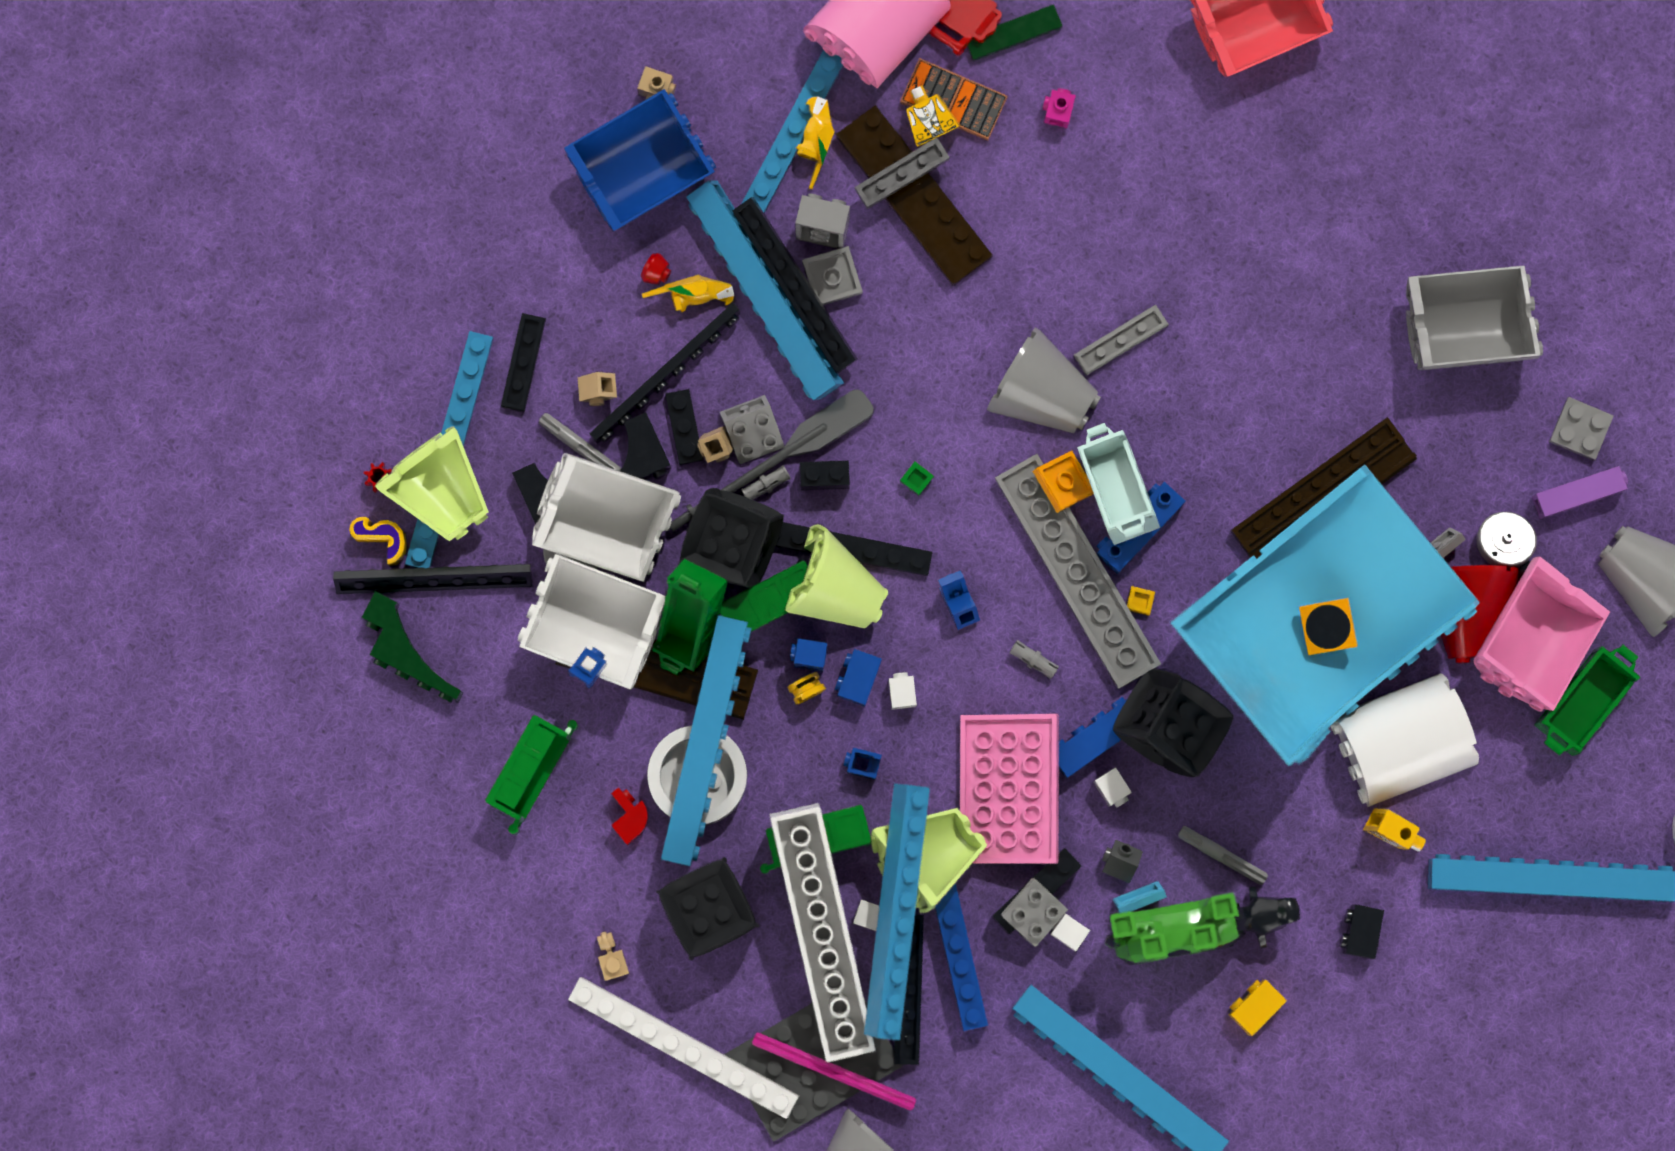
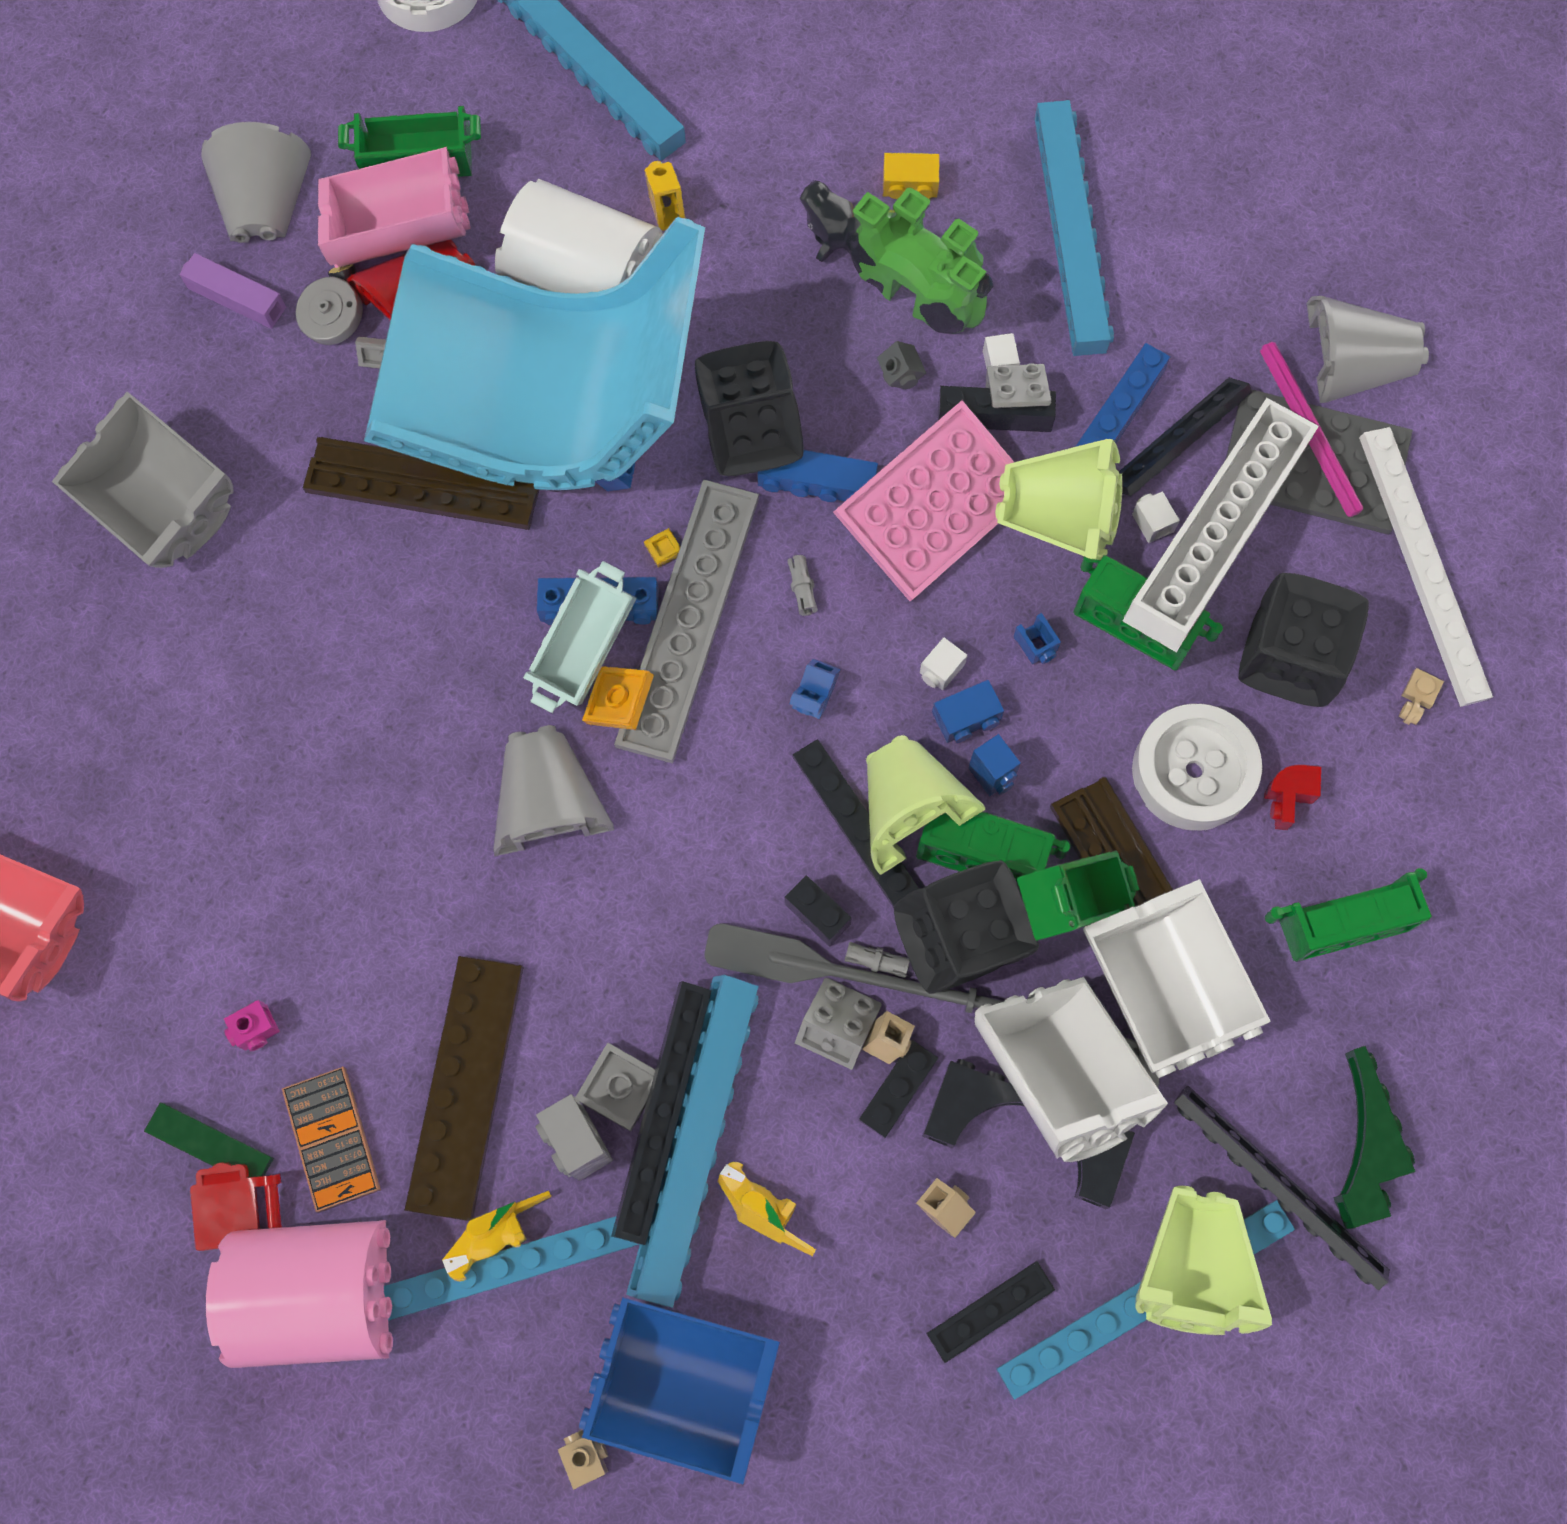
camera: 130 degrees left, 10 degrees down
(371, 474) = (1247, 1352): red gear -> none
(381, 532) = (1289, 1281): yellow animal -> none
(575, 442) = (1014, 1173): light grey axle -> none
(584, 675) = (1208, 934): blue window -> none
(656, 270) = (774, 1266): red cone -> none
(674, 366) = (881, 1154): black plate -> none
(704, 741) = (1167, 775): dark azure brick -> none
(808, 690) = (1026, 744): yellow wheel -> none
(896, 911) = (1141, 472): dark azure brick -> none
(902, 173) = (453, 1112): flat silver plate -> none
(916, 478) = (739, 828): green plate -> none
(929, 117) = (370, 1140): torso -> none
(1113, 788) = (847, 427): white brick -> none
(1121, 340) = (436, 770): light grey tile -> none
(1139, 897) = (917, 329): medium azure tile -> none
(1222, 855) = (815, 303): light grey axle -> none
(1328, 626) = (540, 368): black tile -> none
(1362, 931) = (769, 152): black brick -> none
(1581, 428) = (172, 338): light grey plate -> none

